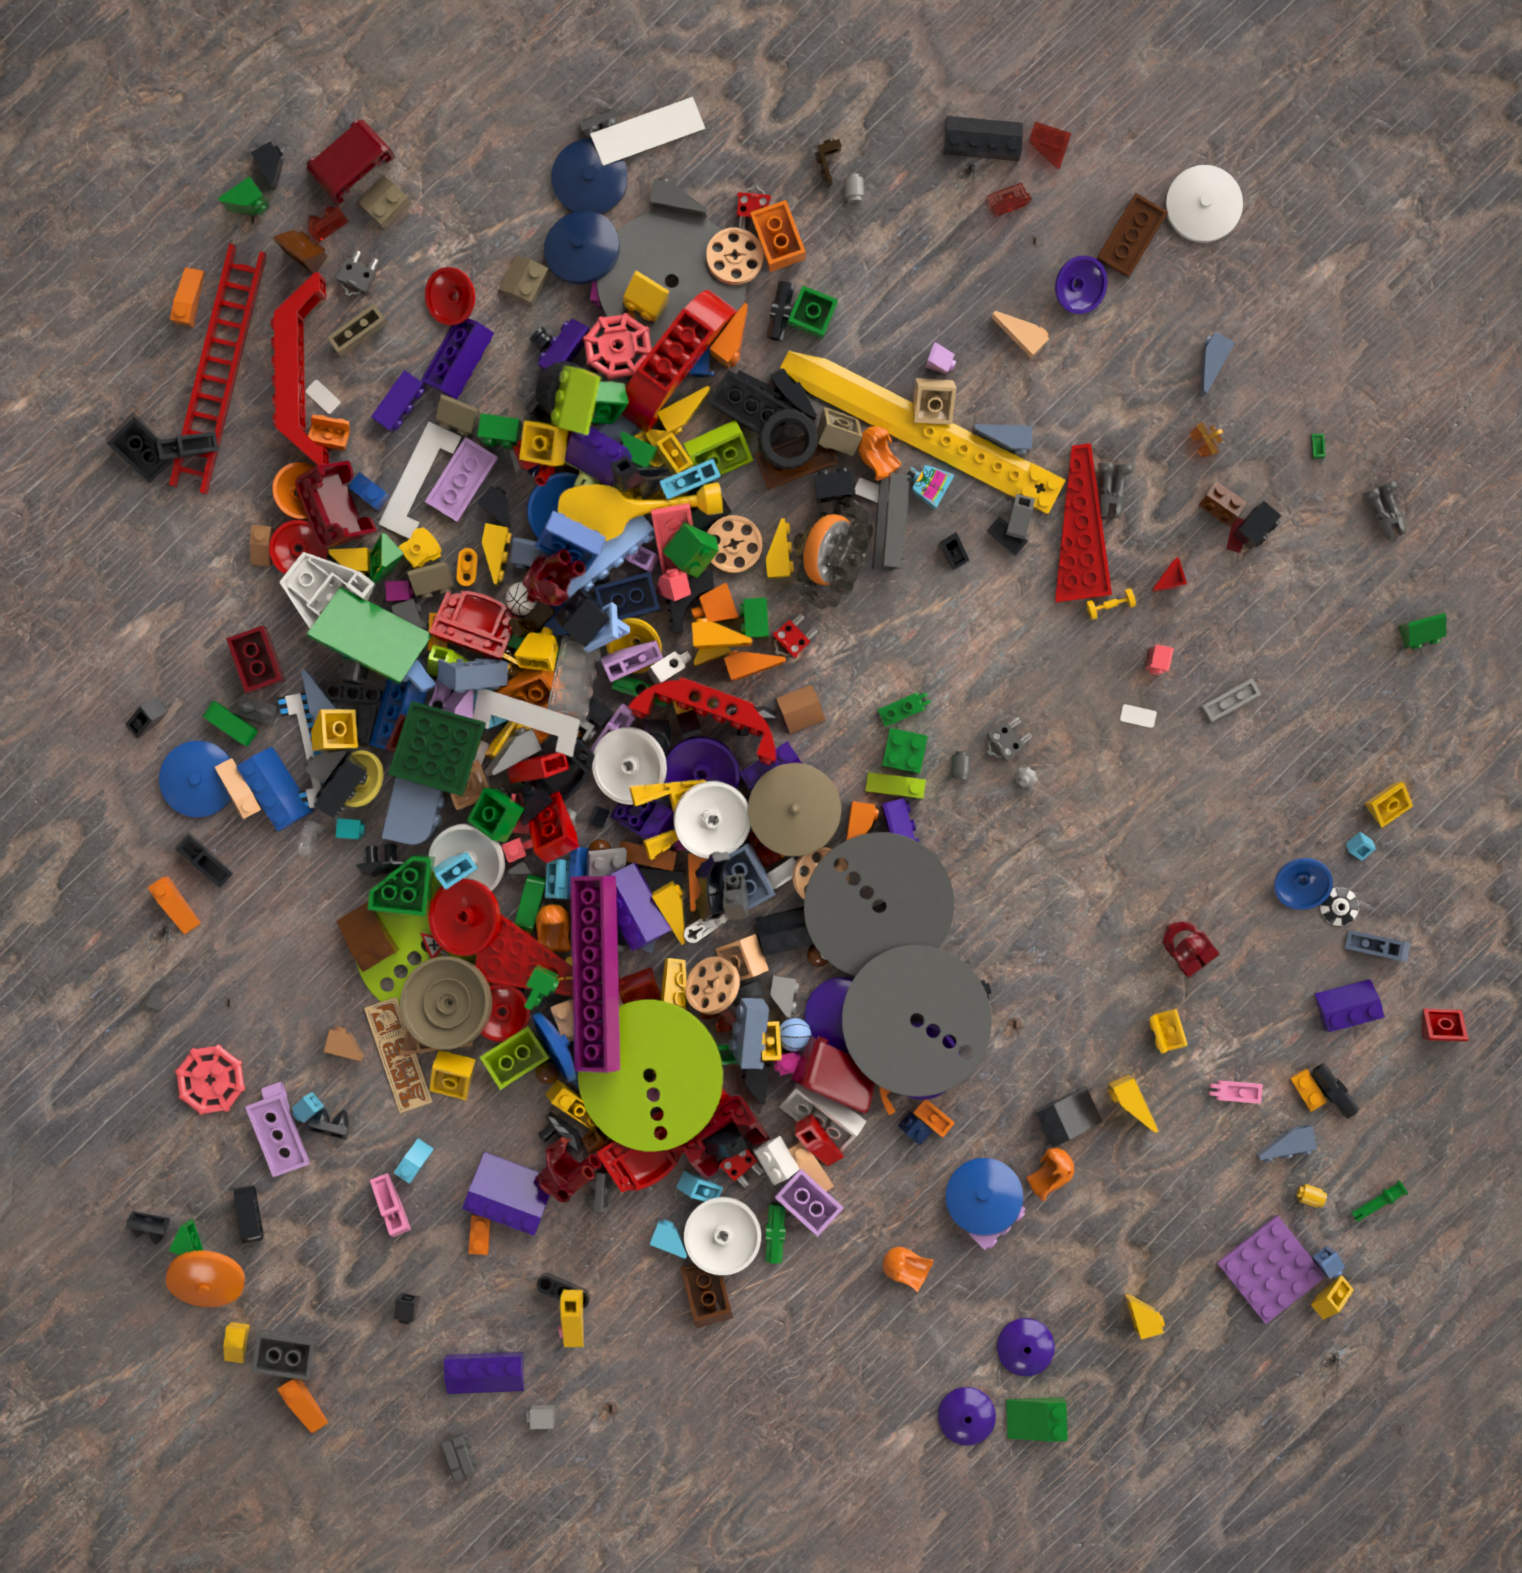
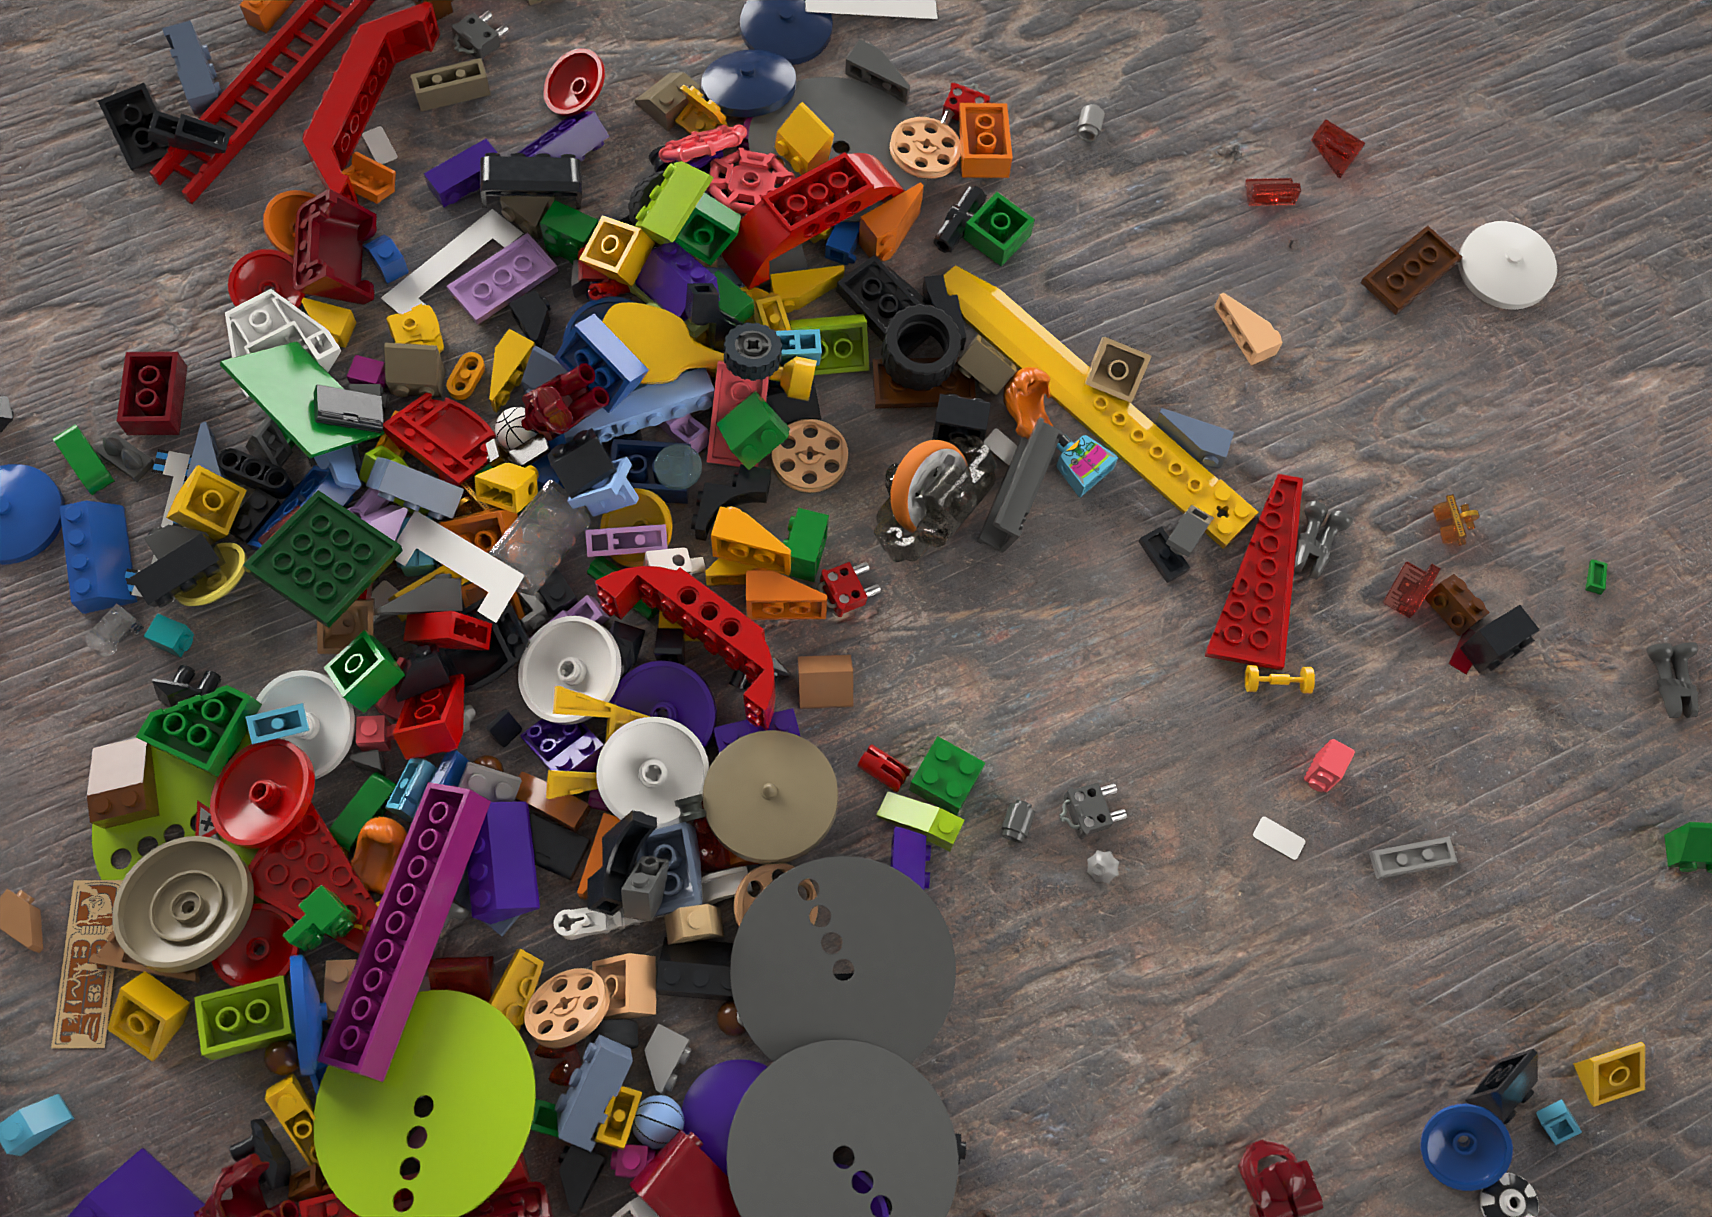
camera: 10 degrees right, 20 degrees down
(160, 385) = (193, 66): none -> sand blue wedge
(237, 789) = (48, 539): light nougat slope -> none
(259, 545) = (220, 269): medium nougat slope -> none
(383, 558) = (366, 330): green slope -> none
(403, 631) = (348, 408): none -> piece
(413, 813) = (260, 637): sand blue brick -> none
(456, 402) = (530, 176): none -> black windscreen
(558, 295) = (698, 113): none -> yellow bracket
(569, 323) = (703, 143): none -> coral plate
(648, 594) = (678, 466): none -> clear light blue piece
(670, 902) = (553, 878): yellow slope -> none
(673, 498) = (752, 351): none -> black wheel
(673, 585) = (717, 465): coral slope -> none
(716, 605) = (767, 511): orange torso -> none
(745, 835) = (690, 808): none -> pearl dark grey wheel
(774, 908) = (694, 924): none -> tan slope
(778, 558) = (860, 484): yellow slope -> none
(829, 147) = (1070, 75): dark brown bracket -> none
(860, 758) = (884, 768): none -> red arm
(860, 818) = (860, 838): orange slope -> none
(902, 708) = (962, 724): green hinge -> none
(940, 360) = (1138, 325): lavender slope -> none
(953, 551) = (1089, 547): black slope -> none
(983, 138) = (1257, 122): black slope -> none
(1089, 287) = (1348, 297): dark purple dish -> none
(1171, 578) = (1370, 673): red slope -> none
(1187, 502) = (1410, 588): none -> clear red panel
(1213, 357) = (1484, 430): sand blue slope -> none
(1320, 838) = (1507, 1085): none -> black slope

